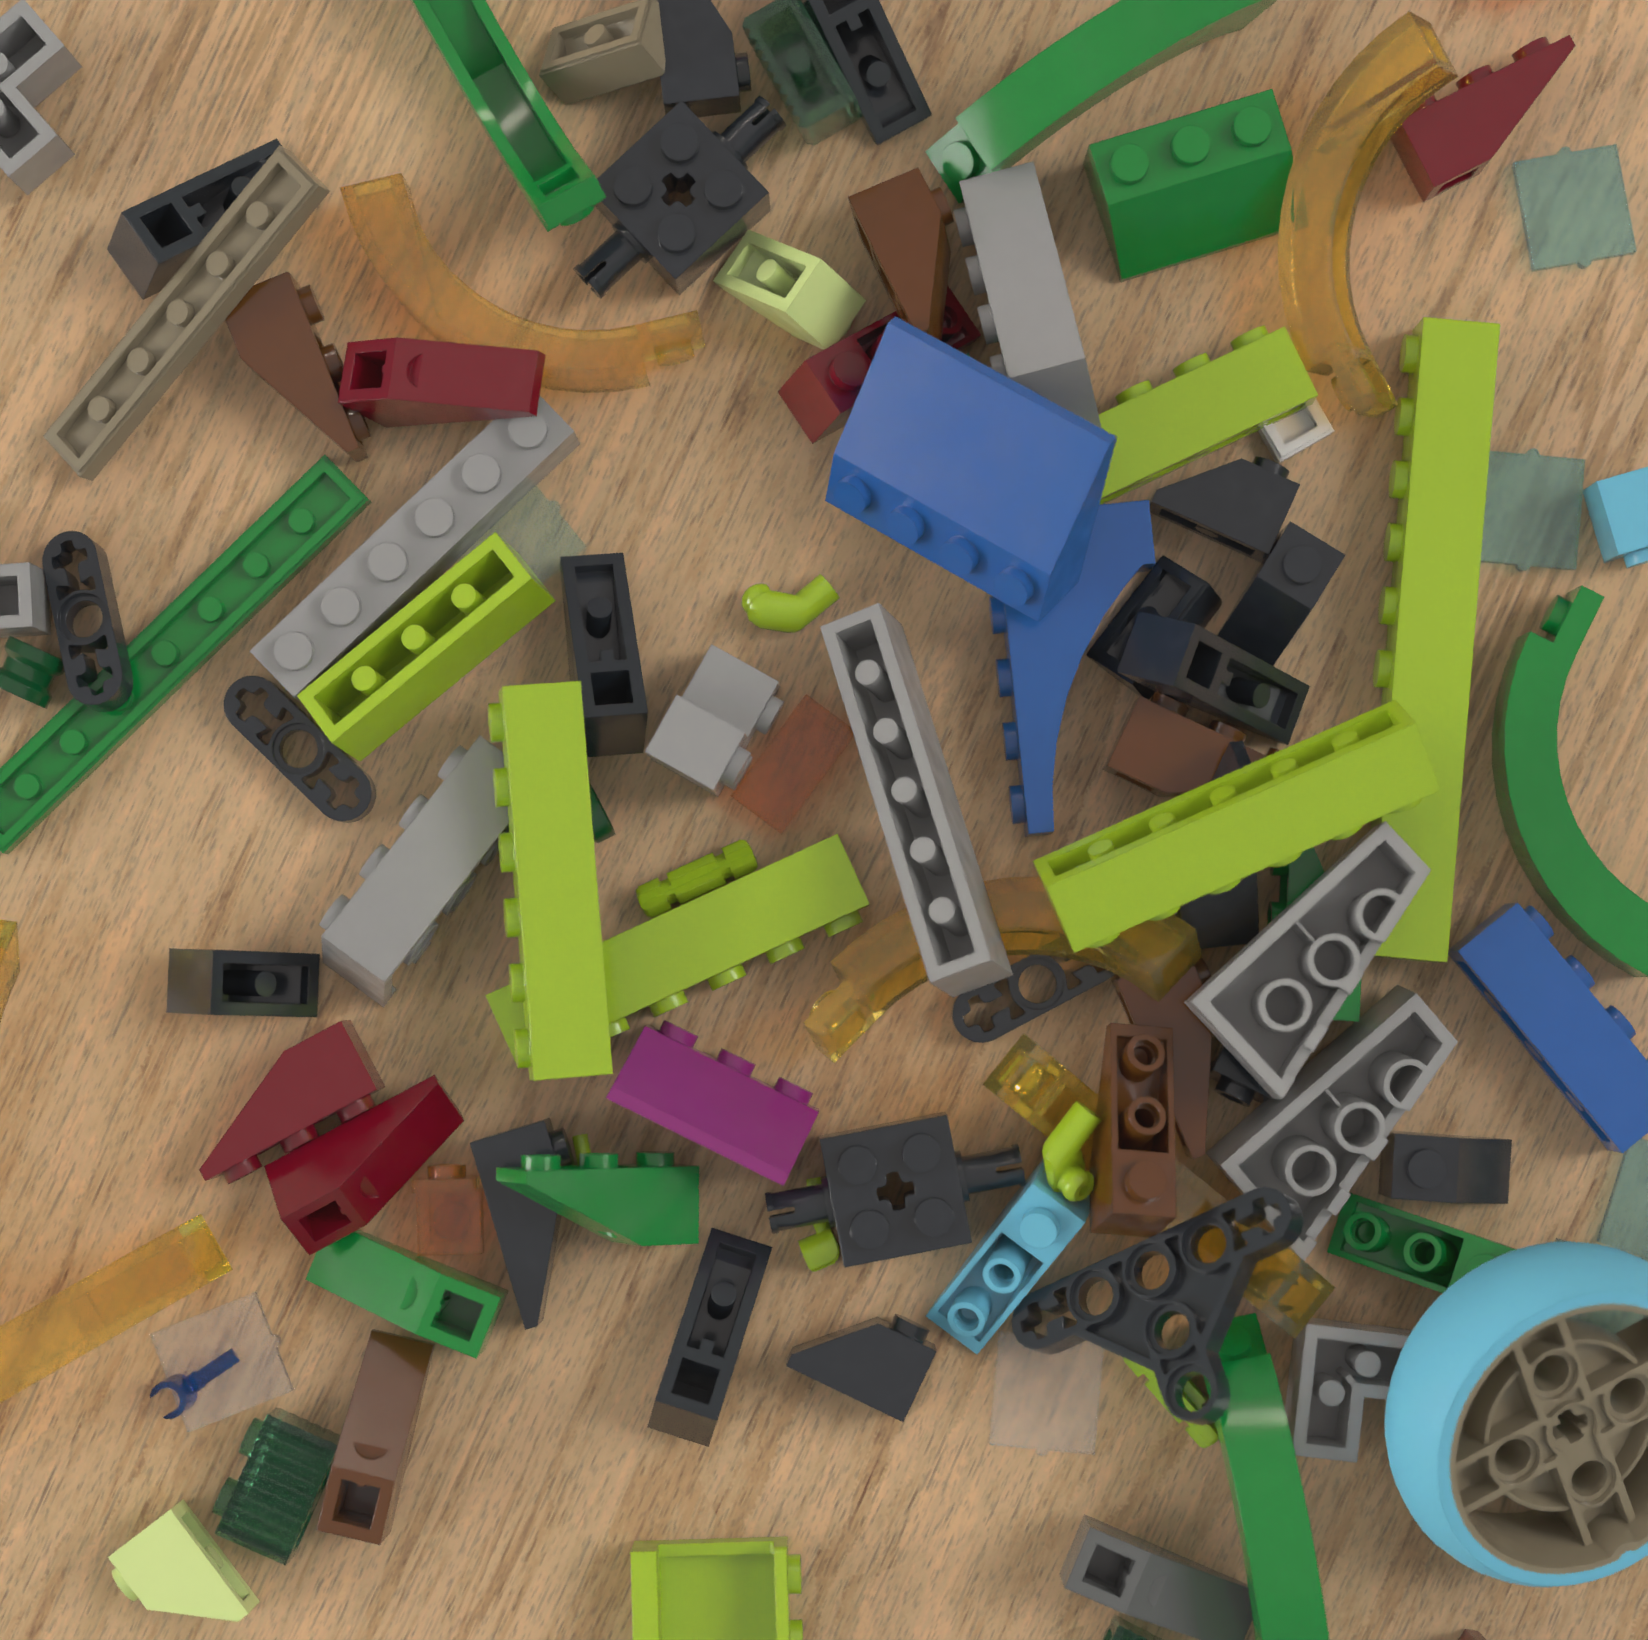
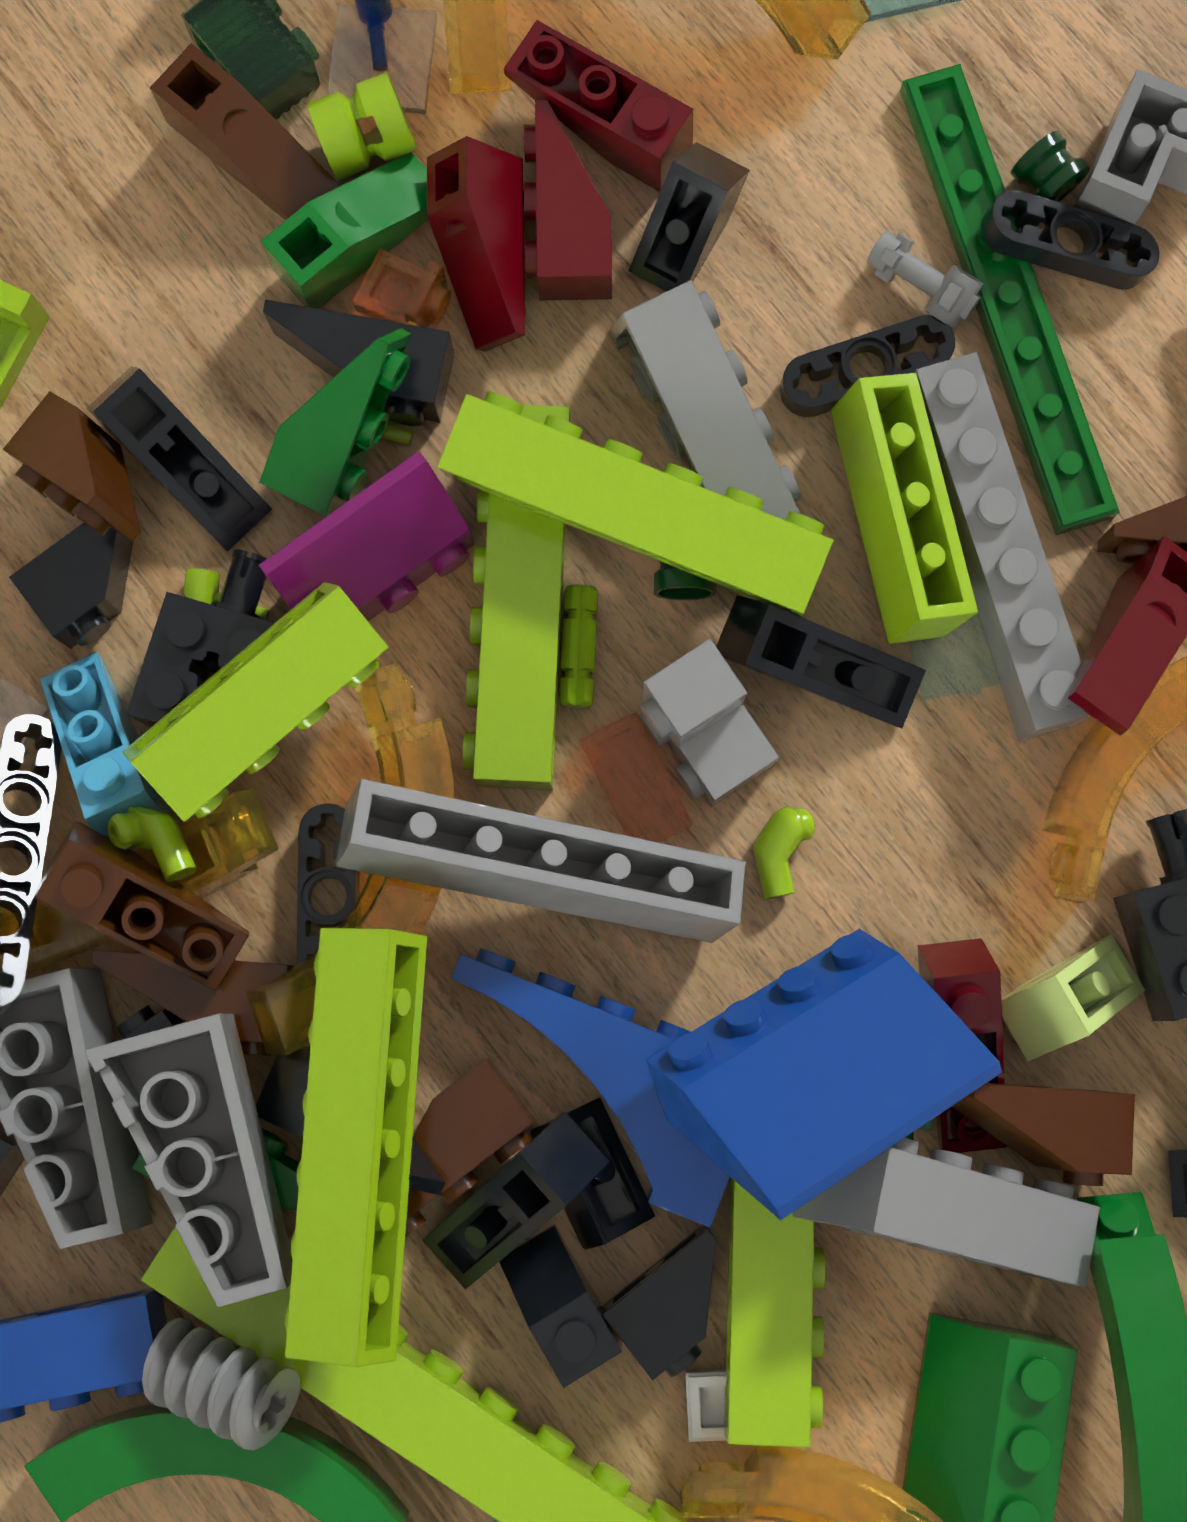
camera: 115 degrees right, 5 degrees down
(172, 1120) = (603, 104): none -> dark red slope
(194, 703) = (951, 294): none -> light grey bar
(308, 1335) = (341, 135): none -> lime wheel
(764, 1416) = (75, 466): none -> reddish brown slope
(904, 1122) = (257, 701): none -> lime brick
(1500, 841) = (219, 1384): none -> light grey piece

